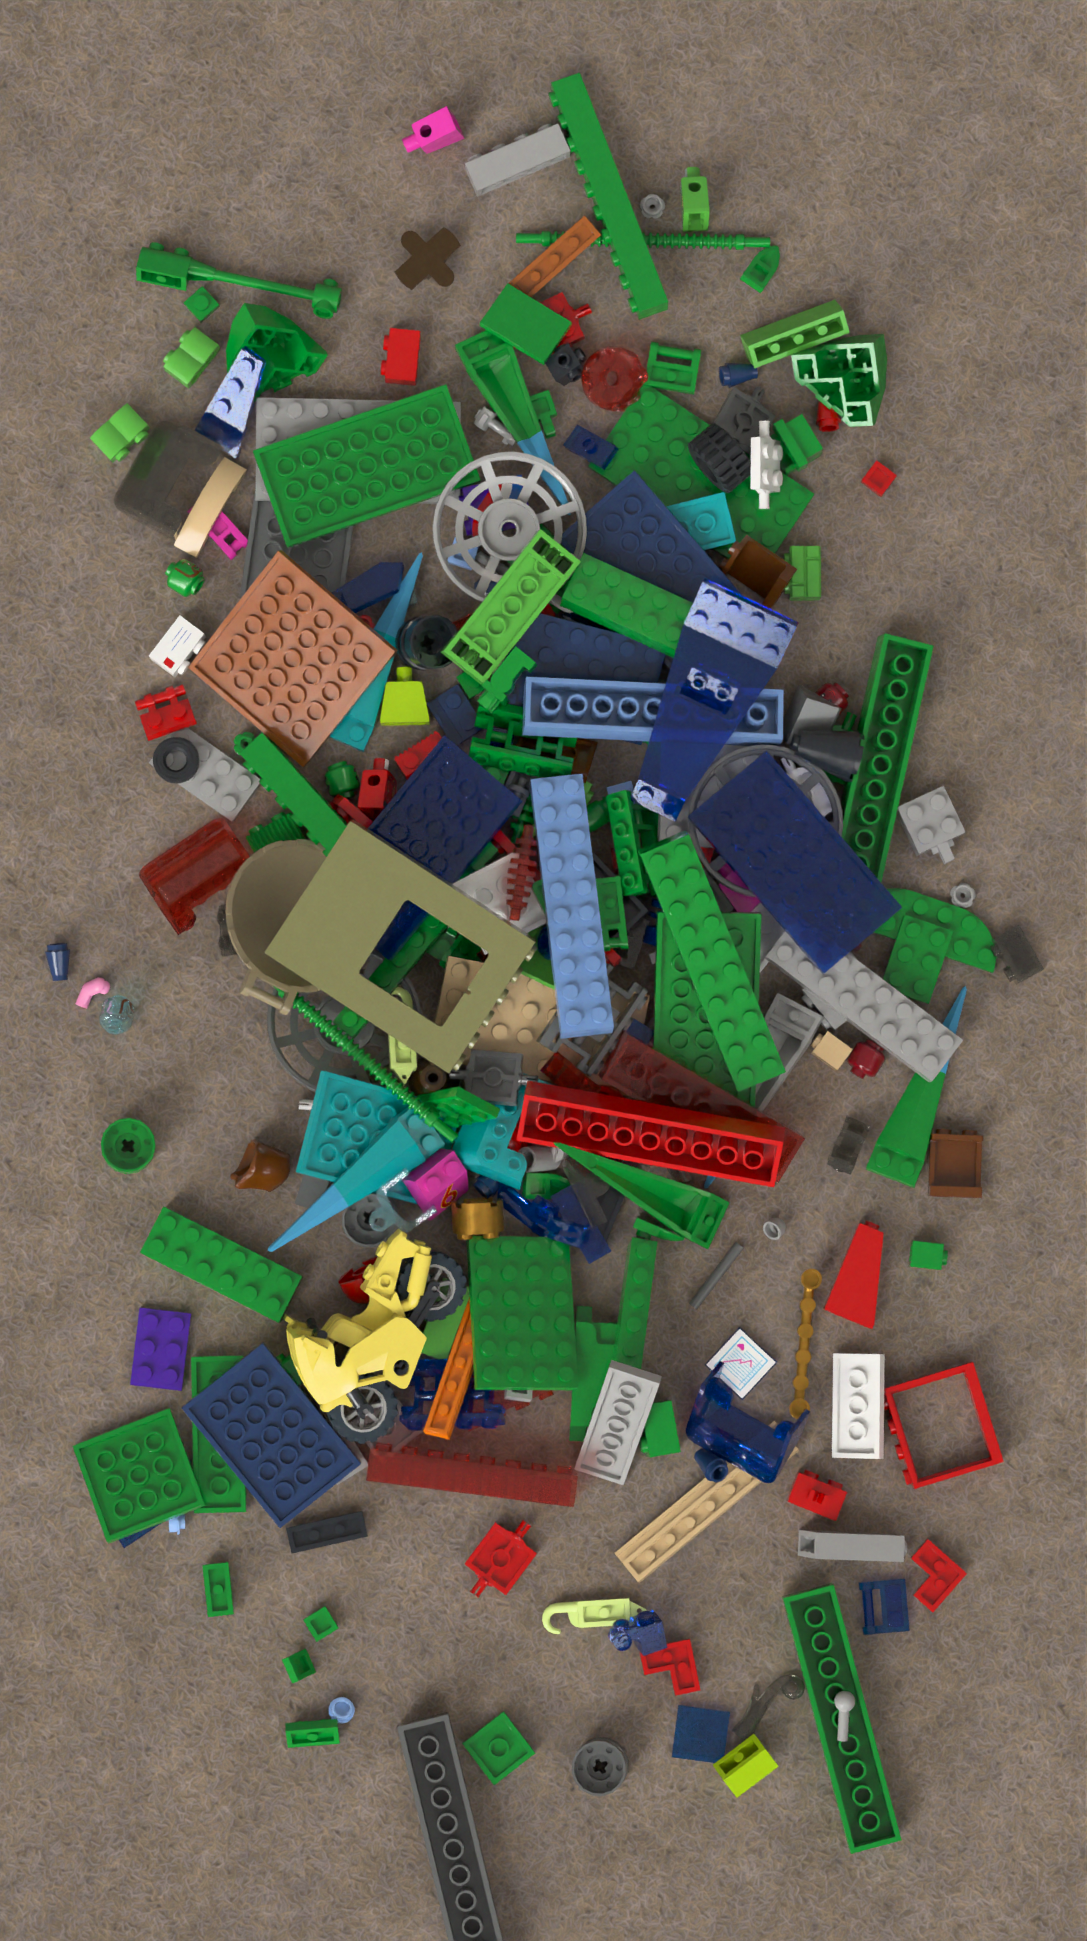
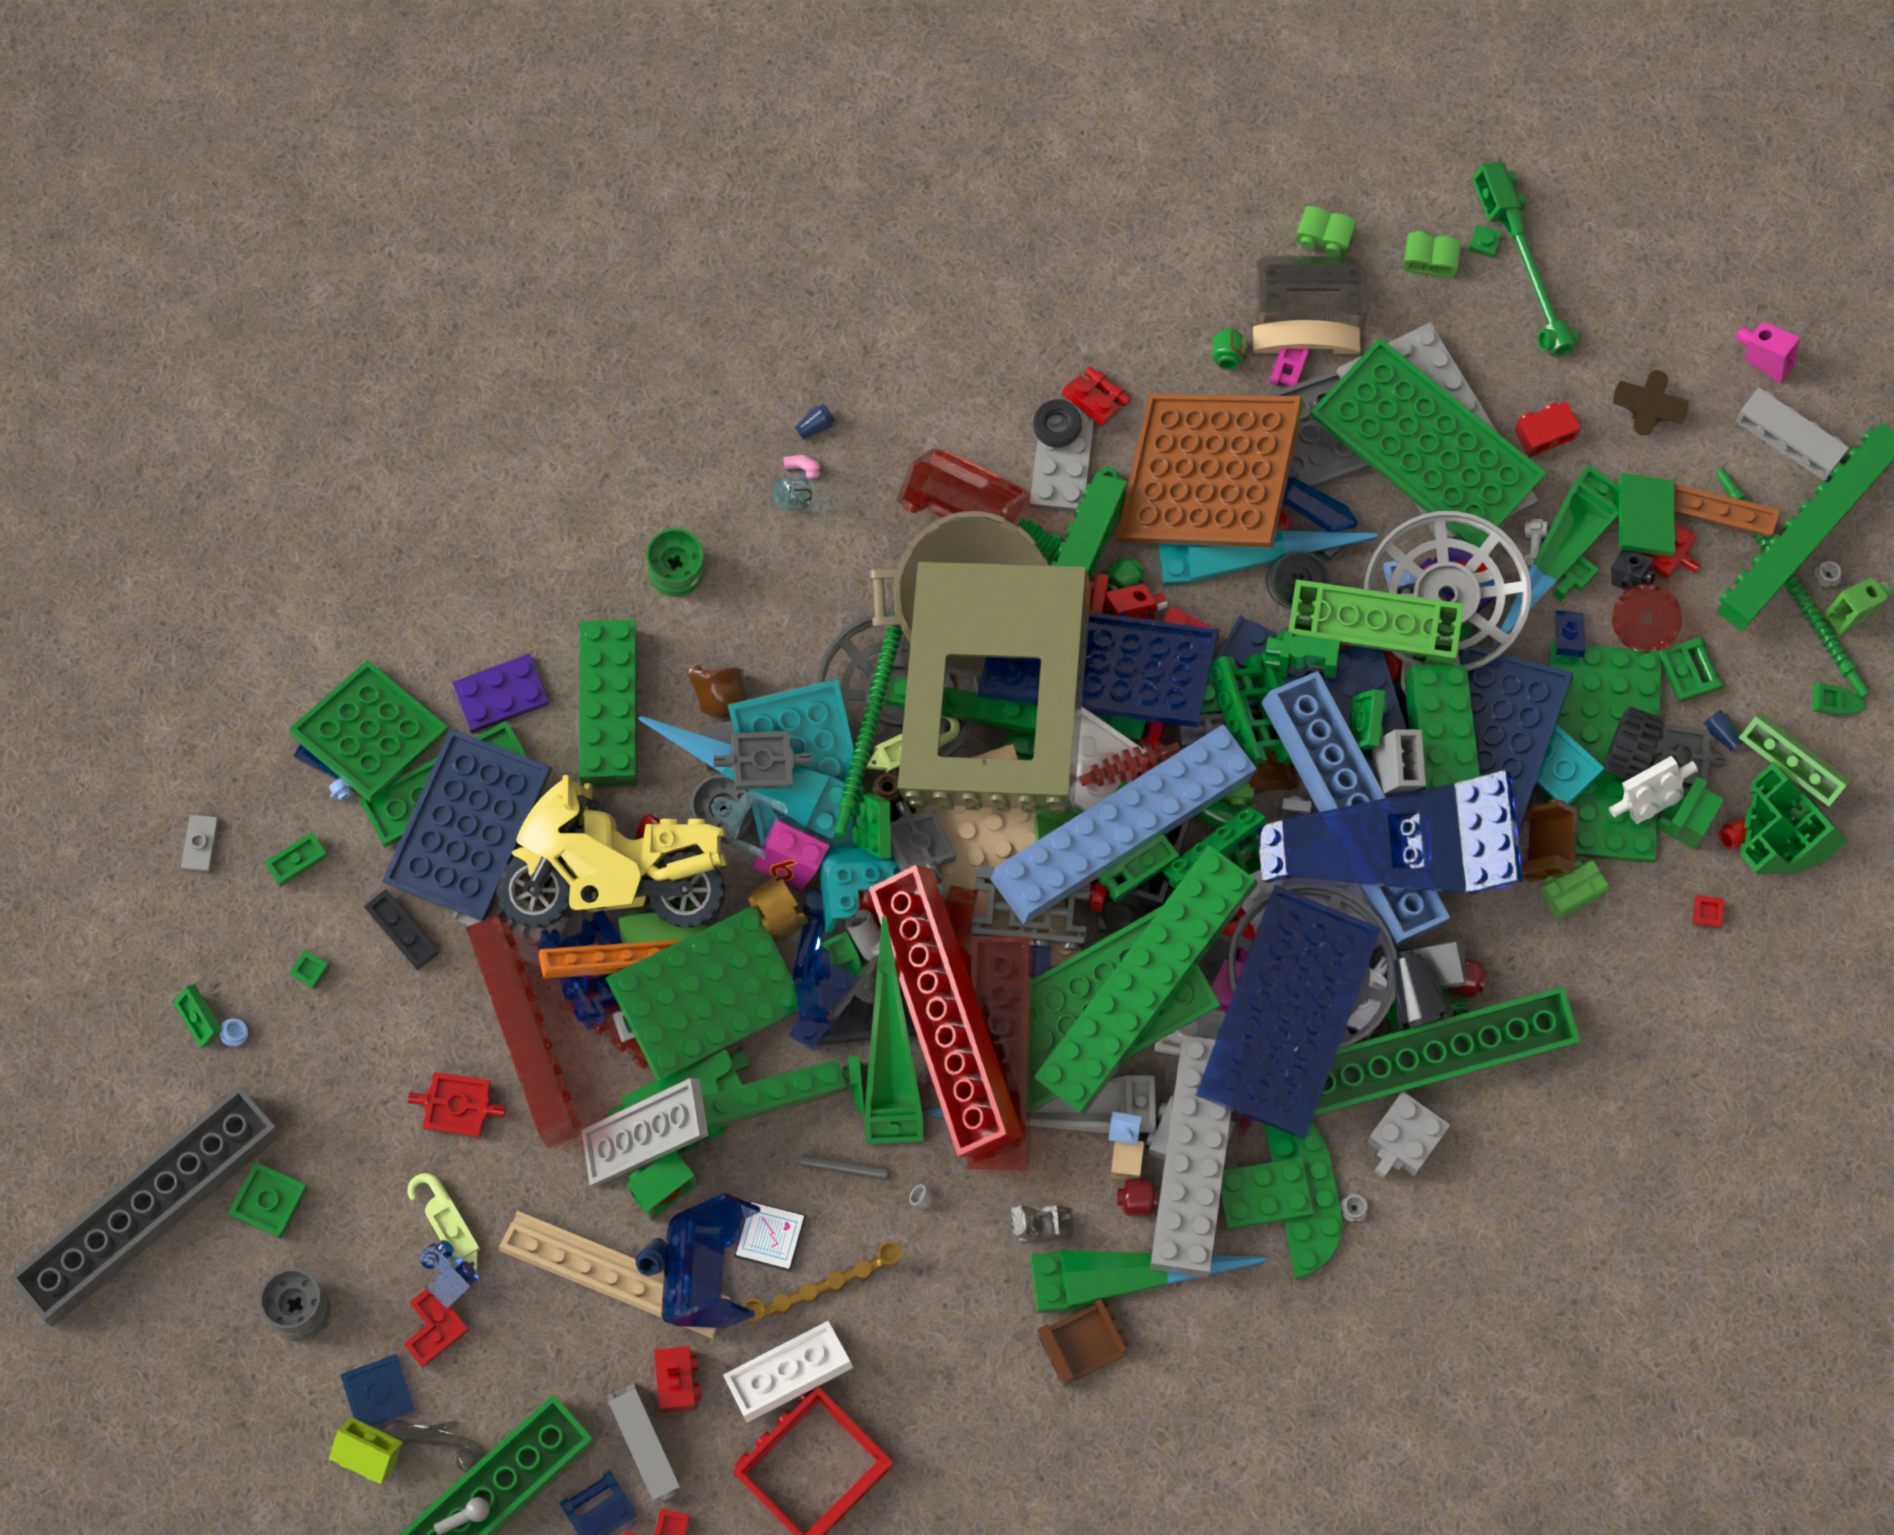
camera: 65 degrees right, 15 degrees down
(159, 1662) = (200, 843): none -> light grey plate
(178, 646) = (1162, 374): white brick -> none
(233, 403) = (1412, 303): clear blue wing -> none
(276, 340) = (1476, 314): green brick -> none
(299, 1665) = (257, 969): green plate -> none
(360, 1169) = (762, 760): none -> dark grey plate
(404, 701) = (1230, 593): lime torso -> none
(587, 660) = (1367, 718): none -> green plate
(616, 754) = (1295, 807): none -> light grey plate
(639, 657) = (1399, 762): none -> light grey brick
(811, 1041) = (1124, 1128): none -> light blue plate
(856, 1283) = (915, 1304): red slope -> none
(927, 1255) = (976, 1361): green brick -> none
(1016, 955) = (1326, 1290): clear smoke bracket -> none

